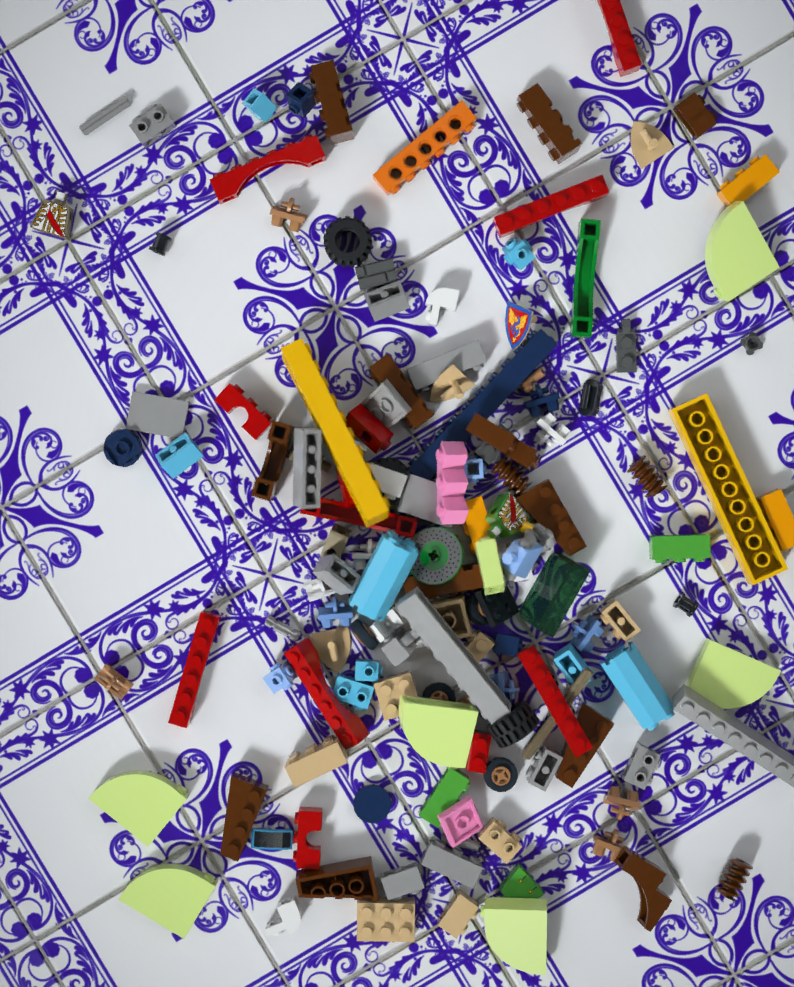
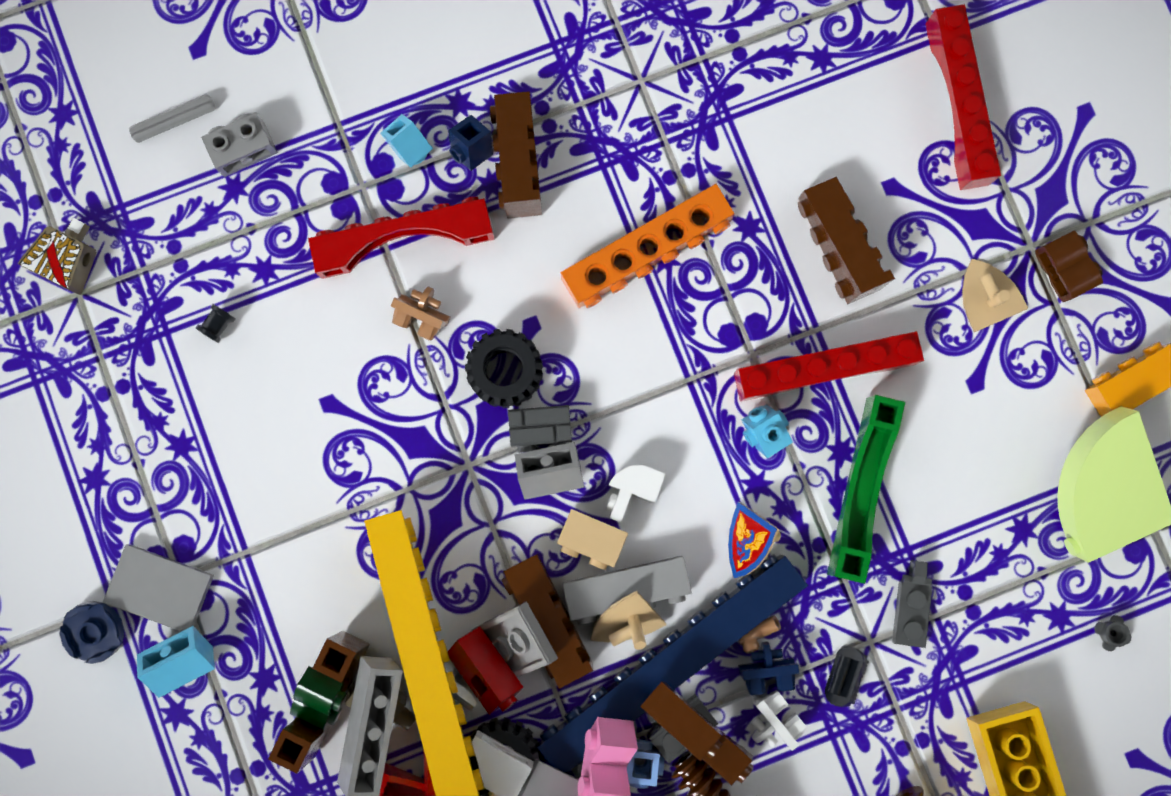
camera: 10 degrees right, 5 degrees down
(232, 398) = (312, 624): red arch -> none
(272, 459) = (318, 699): none -> dark green brick
(420, 338) = (592, 539): none -> tan brick

